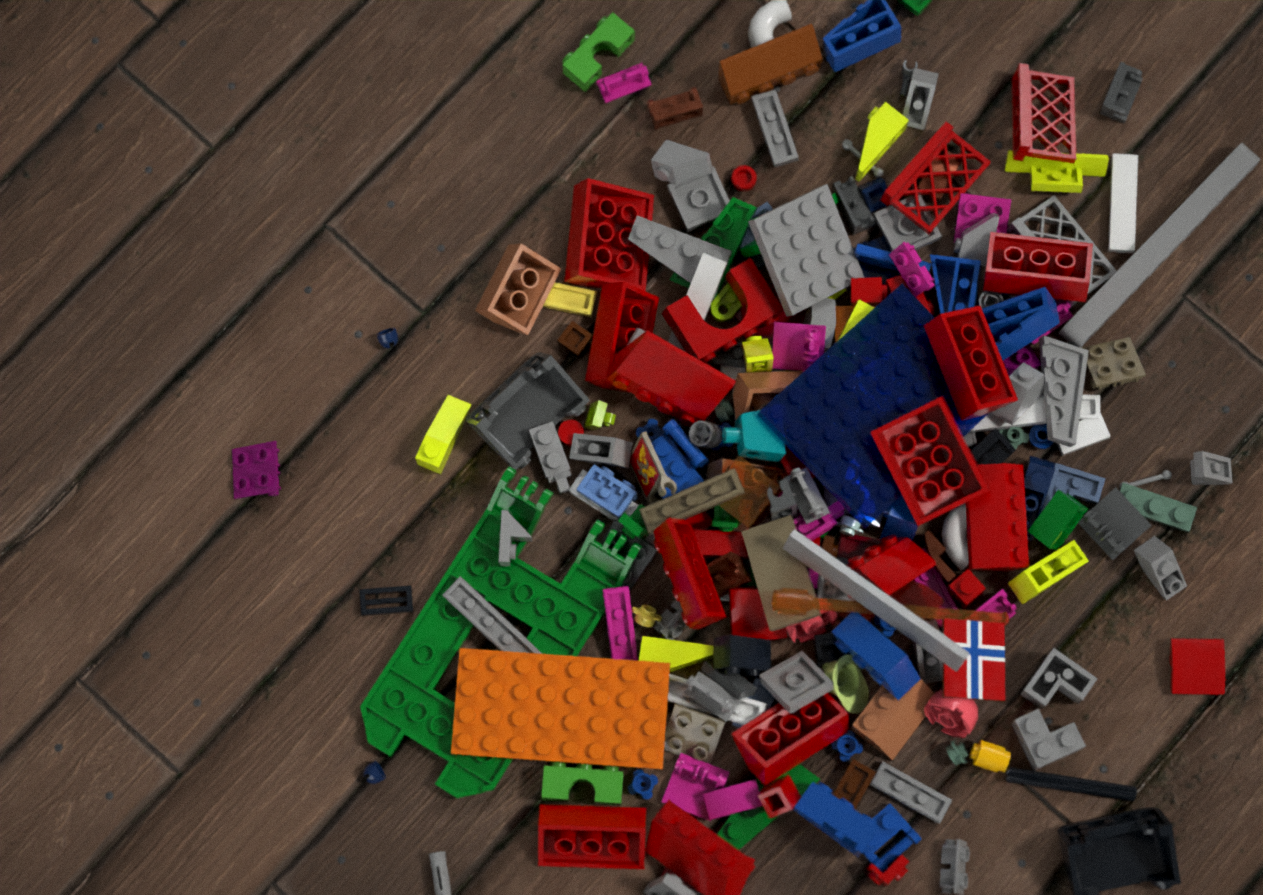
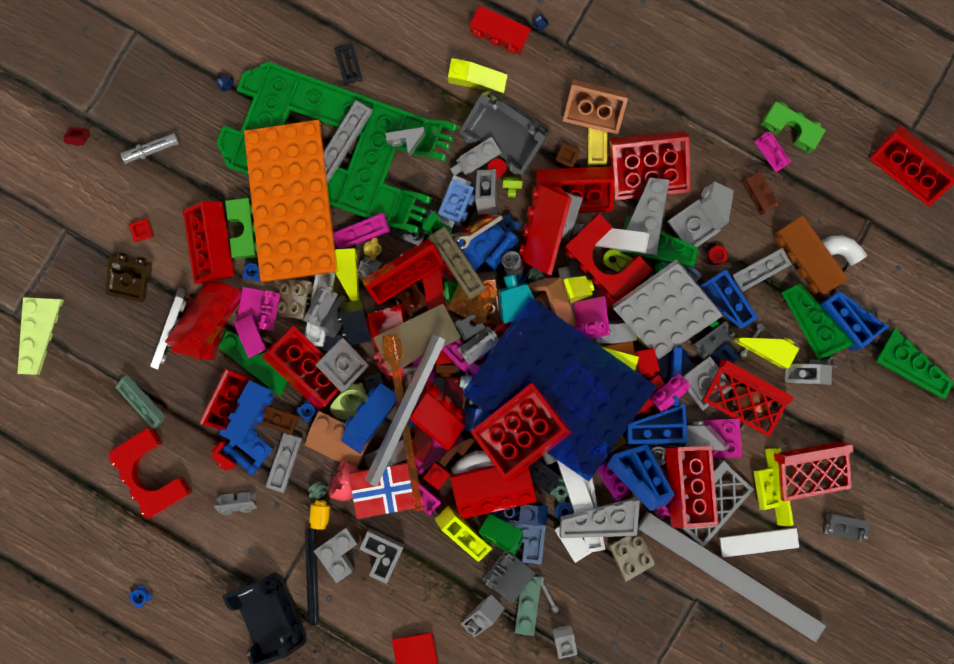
camera: 80 degrees right, 10 degrees up
(388, 391) = (499, 30): none -> red brick
(779, 796) = (256, 368): red brick -> none
(805, 173) = (729, 299): none -> blue wedge
(811, 850) = (224, 399): none -> red slope
(860, 74) = (817, 325): none -> green wing
(970, 362) = (604, 448): red slope -> none
(1028, 387) = (590, 489): light grey slope -> none

